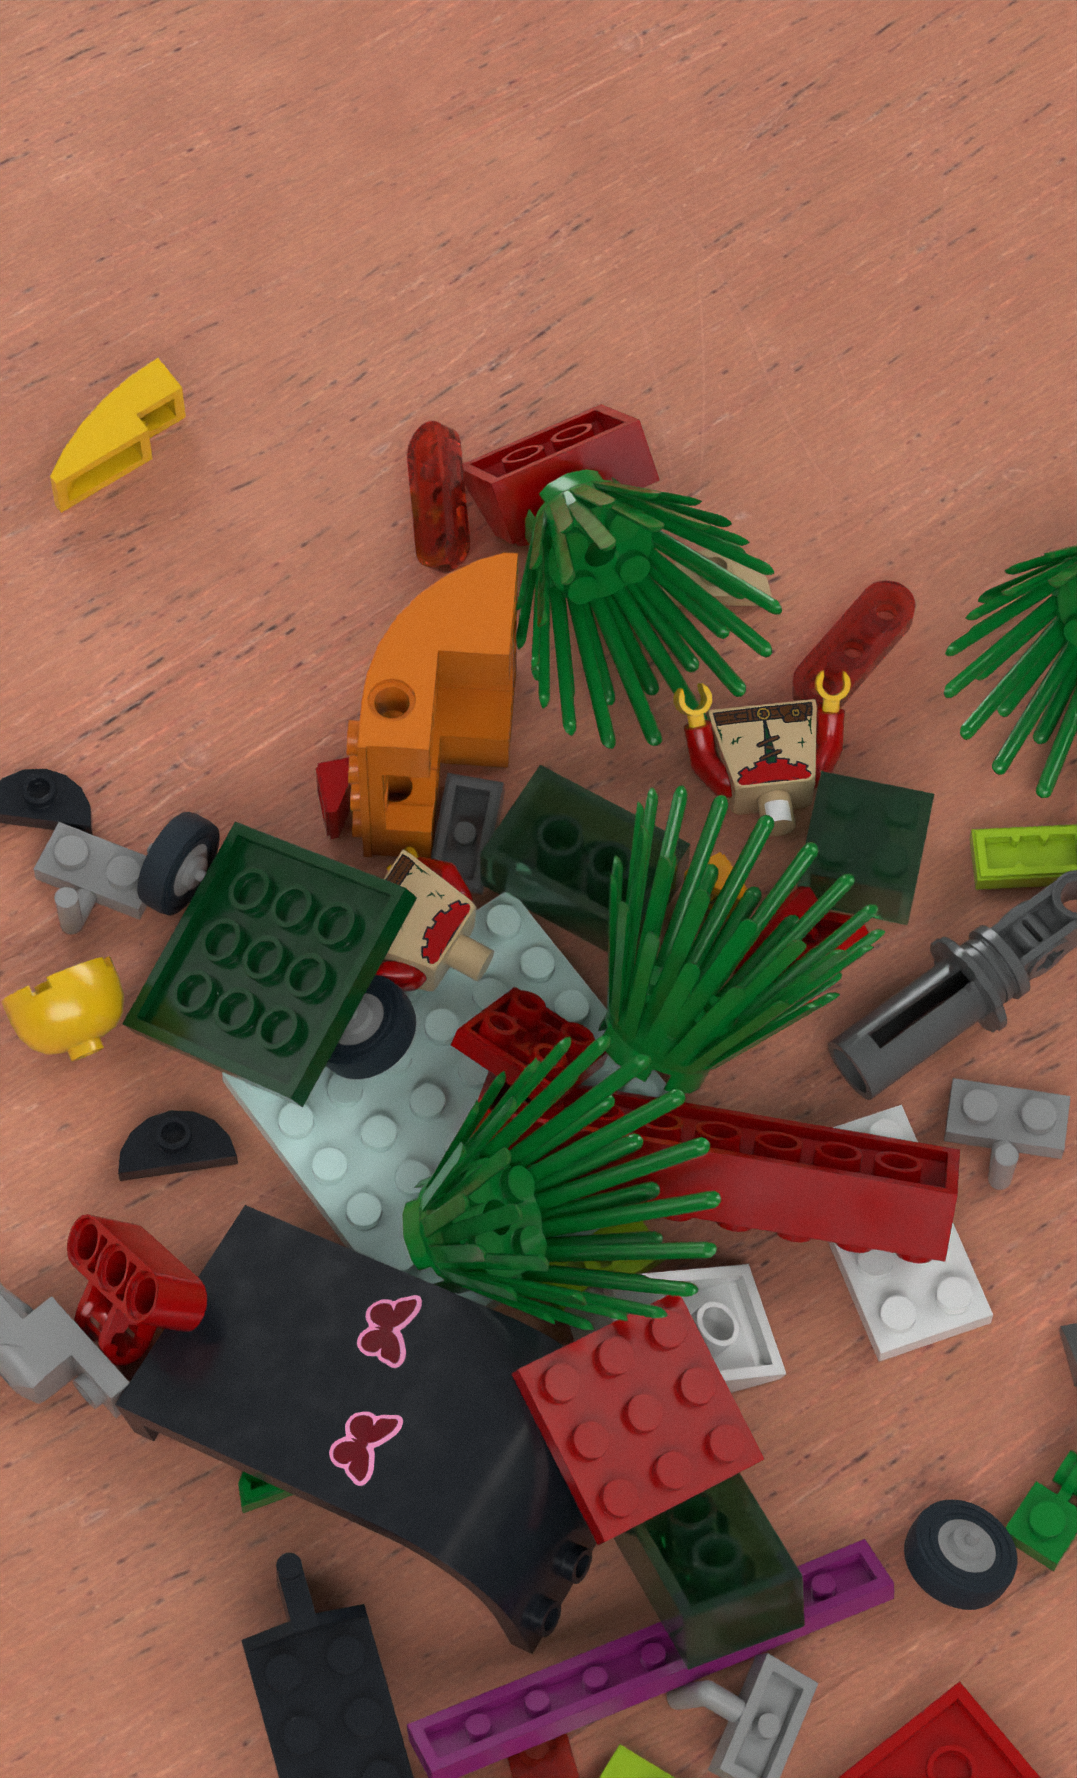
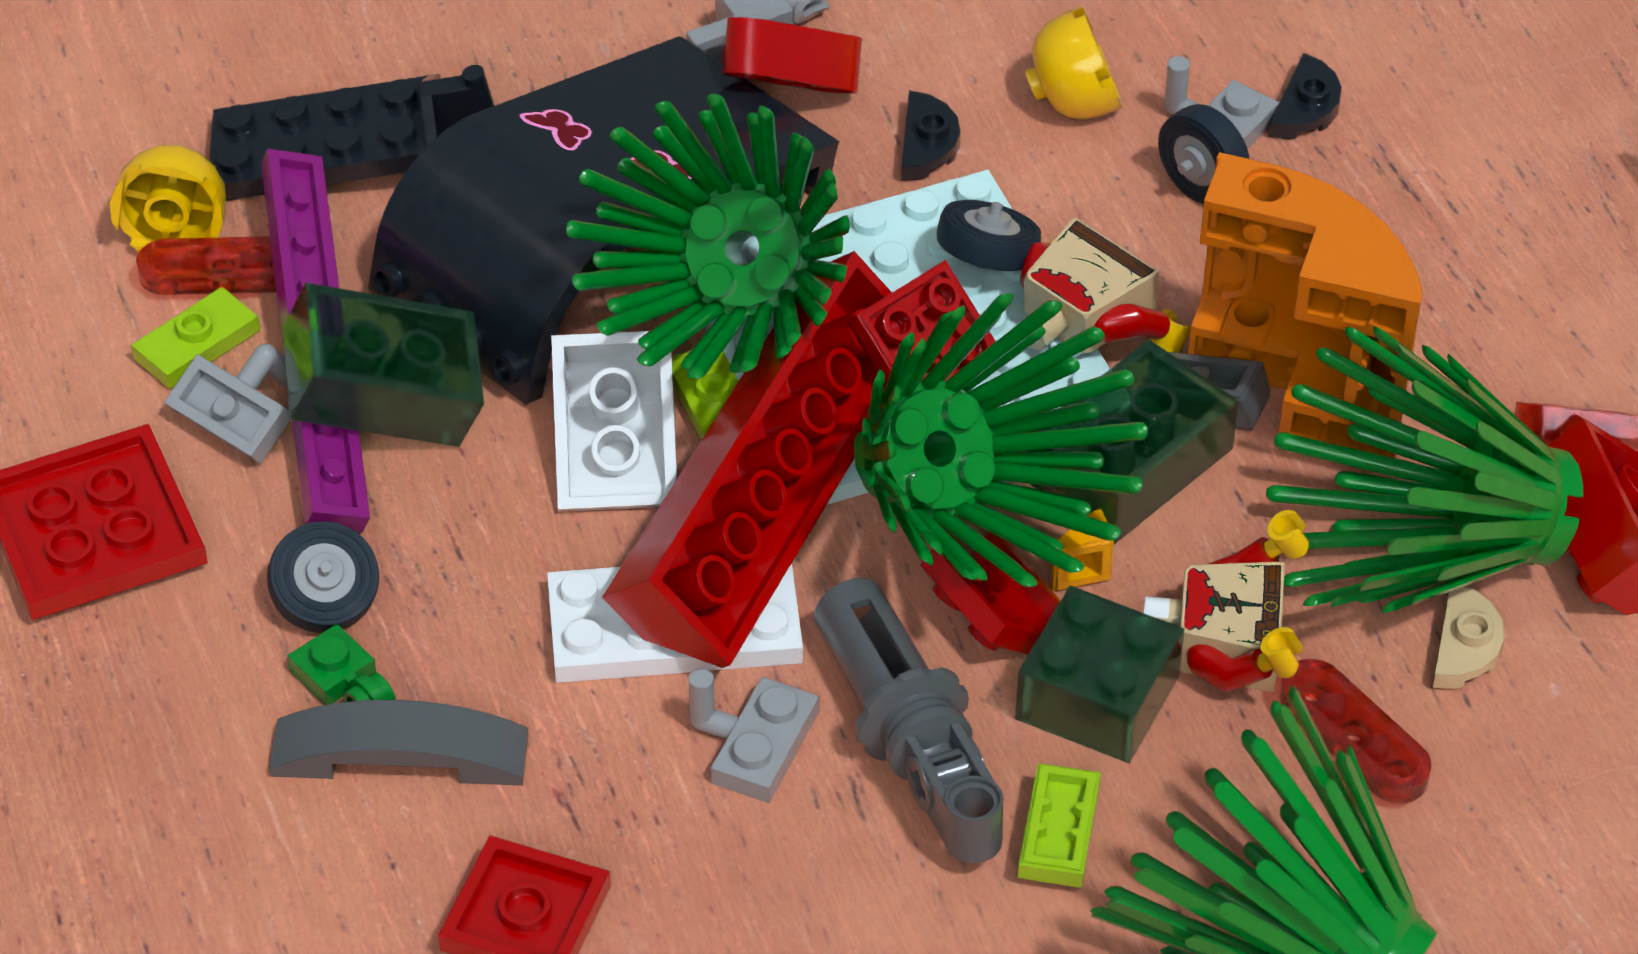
camera: 105 degrees right, 15 degrees down
(269, 962) = (1064, 174): dark green plate -> none
(637, 1418) = (507, 307): red plate -> none

